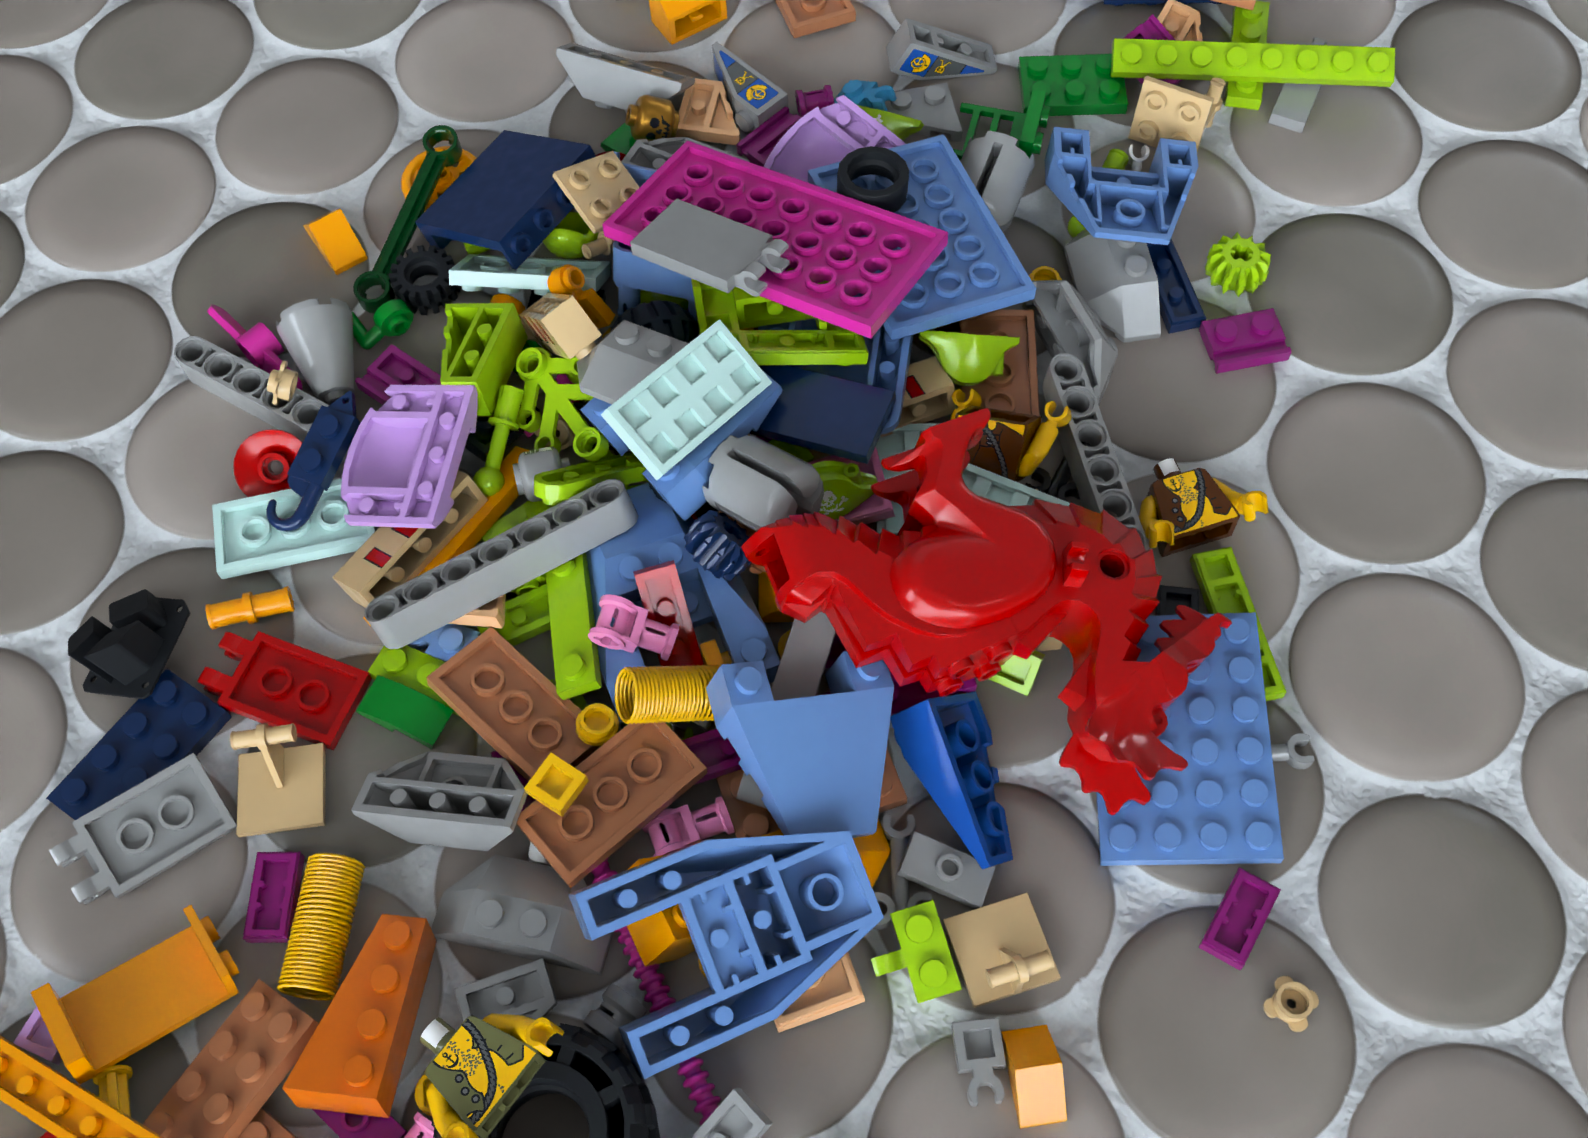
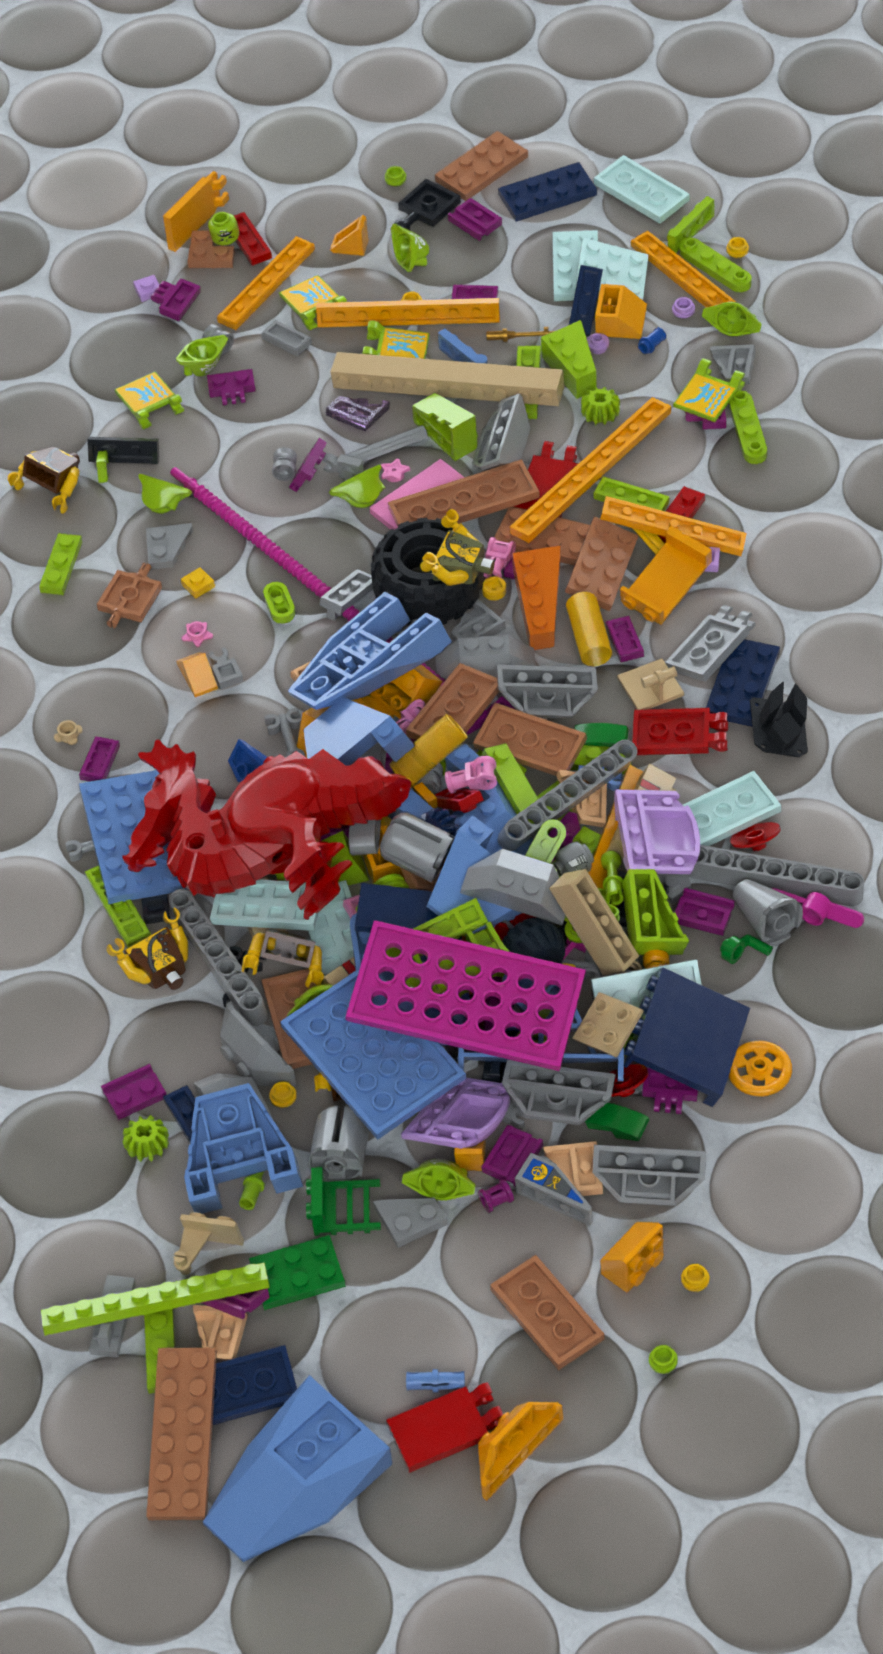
camera: 165 degrees right, 10 degrees down
(249, 608) = (723, 762): light orange pin -> none
(282, 383) = (768, 862): tan plate -> none
(318, 460) = (722, 834): dark blue plate -> none
(336, 241) = (815, 1000): light orange slope -> none
(411, 210) = (761, 1030): dark green piece -> none
(418, 265) = (732, 972): black tyre -> none
(556, 784) = (481, 691): yellow plate -> none
(569, 281) = (604, 965): light orange plate -> none
(597, 724) = (477, 737): yellow plate -> none
(652, 118) = (611, 1129): pearl gold head -> none
(686, 399) = (473, 852): light aqua plate -> none
(710, 248) = (500, 954): light grey tile -> none
(868, 94) = (461, 1208): dark azure plate -> none
(874, 162) = (415, 1079): black tyre -> none
(921, 952) = (268, 703): lime plate -> none
(934, 53) = (408, 1262): light grey slope -> none
(945, 870) = (266, 739): light grey plate -> none
(1001, 950) = (225, 713): tan plate -> none
(1134, 161) = (233, 1210): white hand -> none

